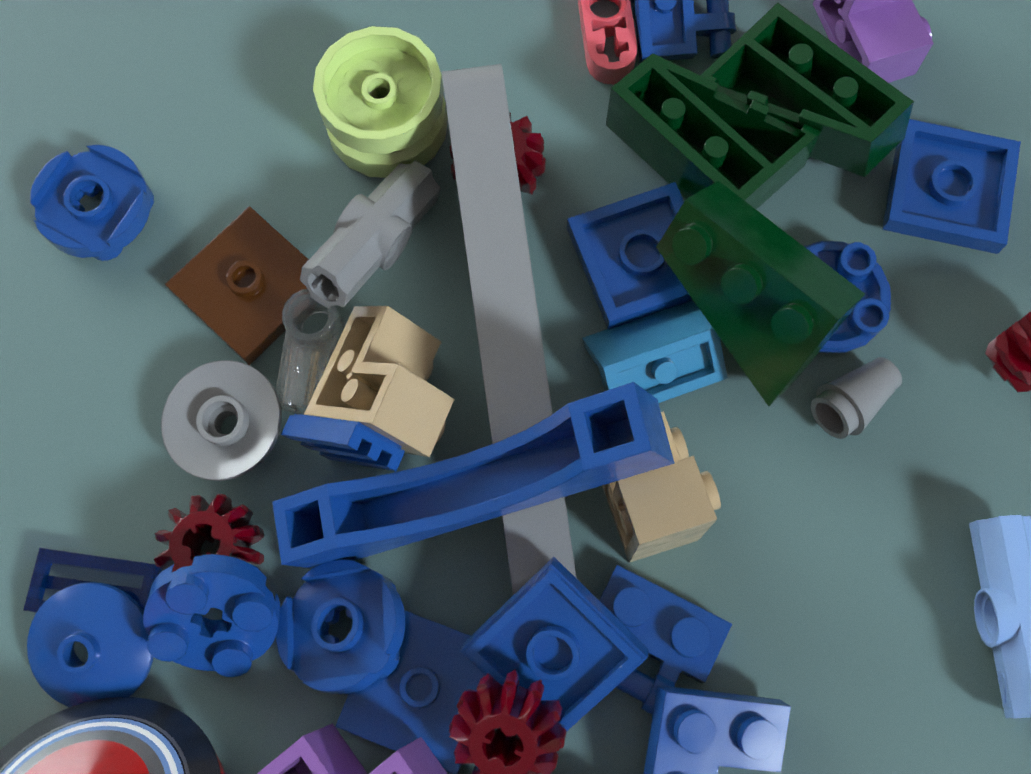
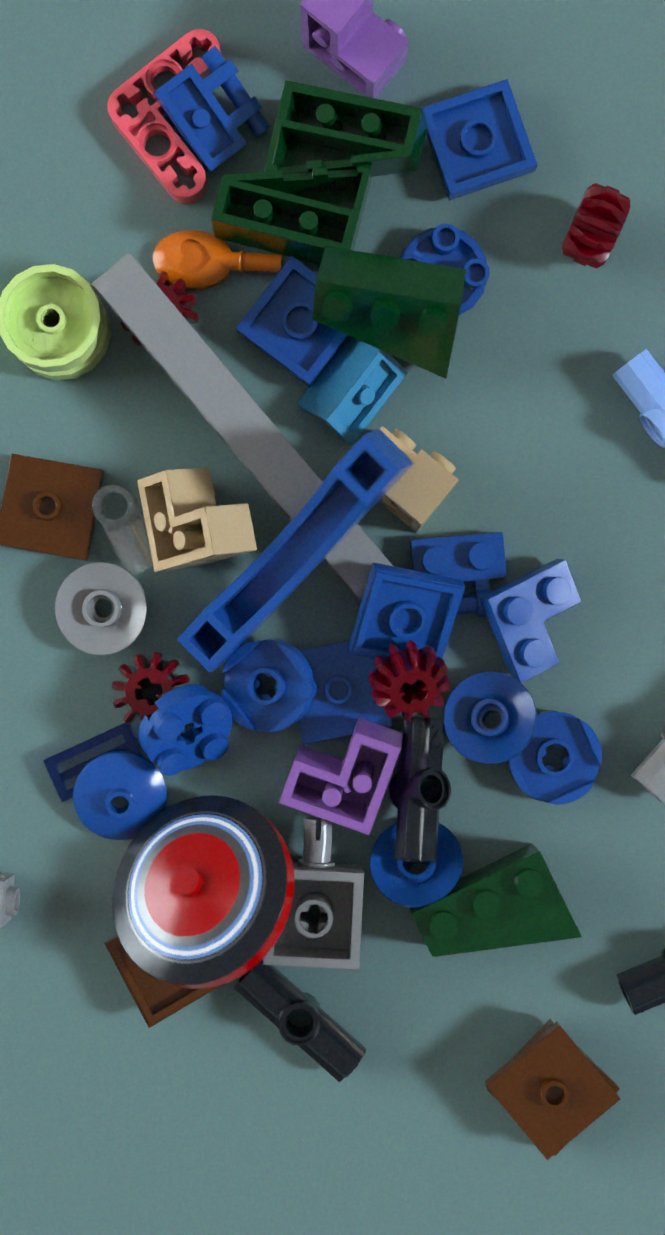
camera: 35 degrees left, 15 degrees up
(344, 441) = (193, 573): blue tile -> none
(370, 234) = (115, 423): light grey piece -> none
(583, 143) = (206, 260): none -> orange piece
(853, 399) = (497, 335): light grey cone -> none

